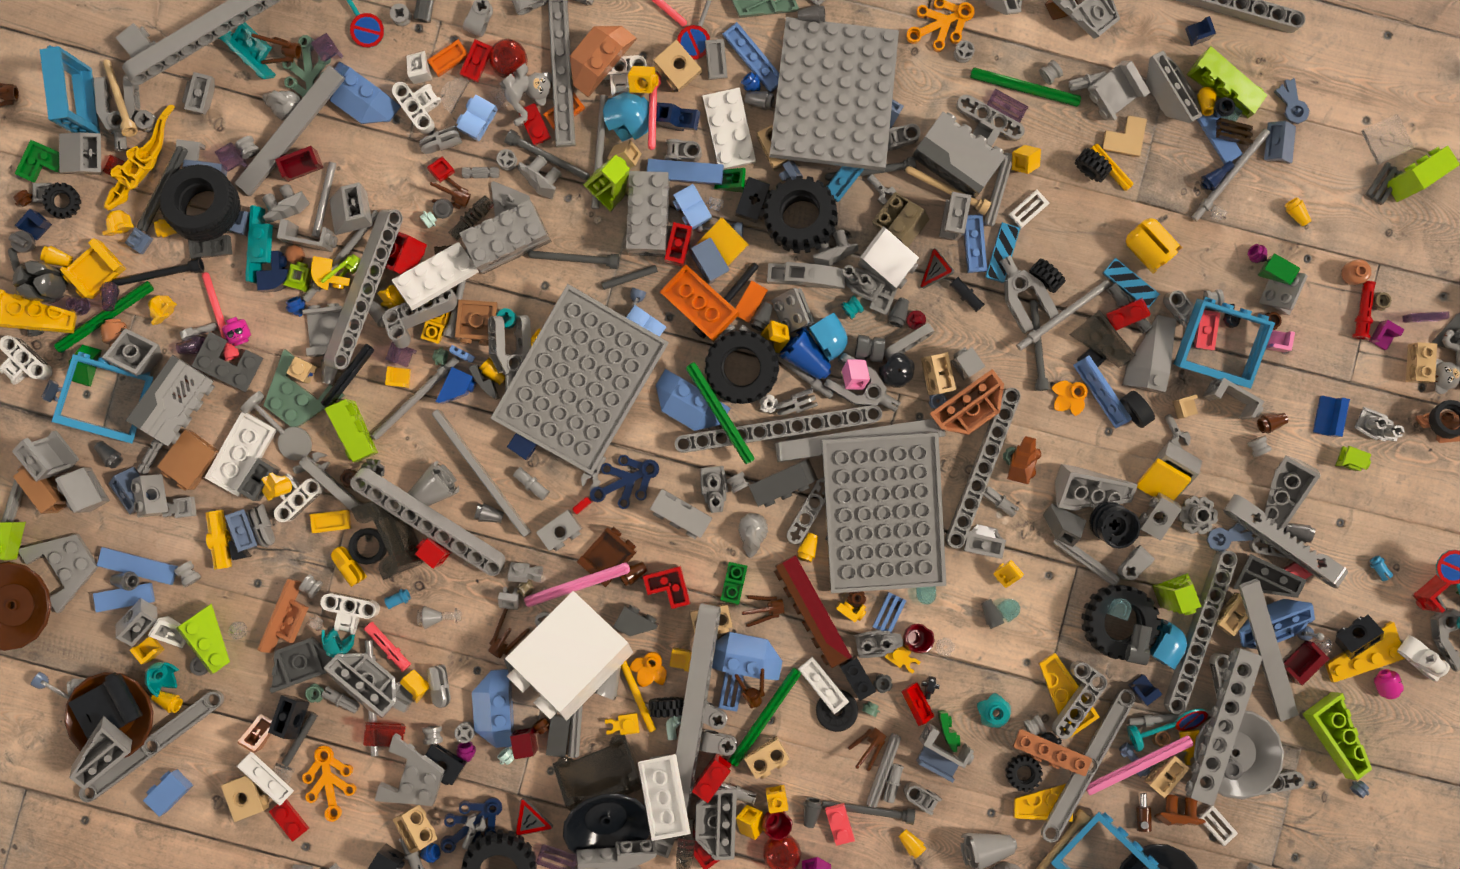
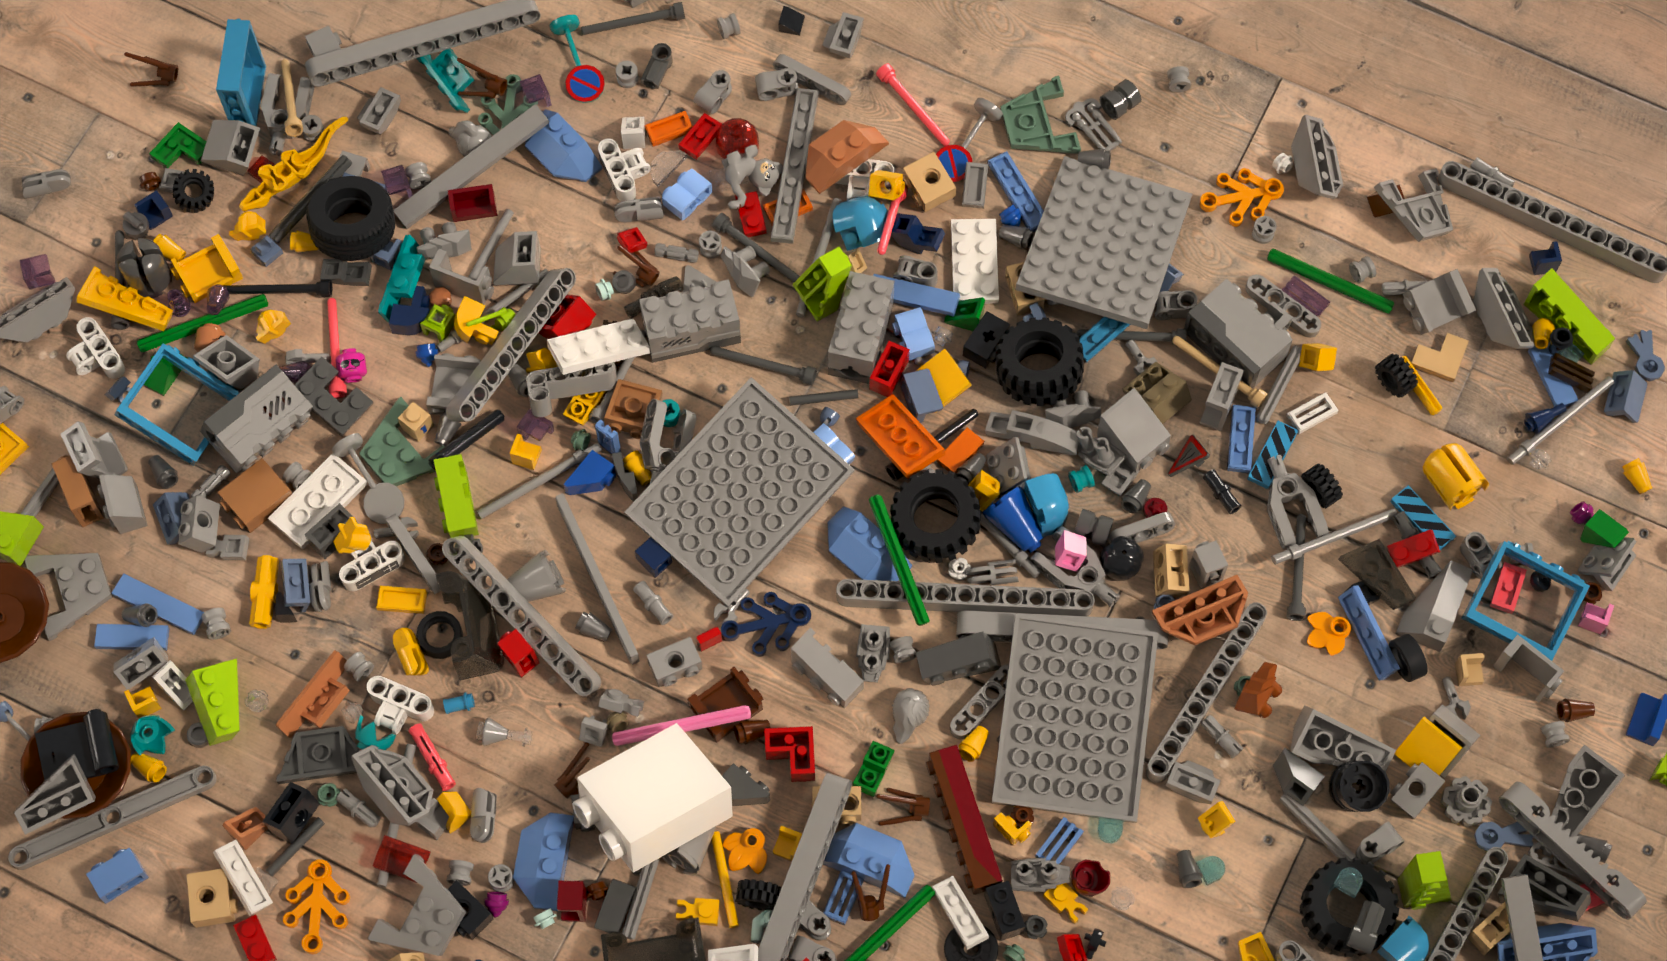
camera: 15 degrees right, 20 degrees down
(217, 435) = (296, 474): none -> light grey wheel

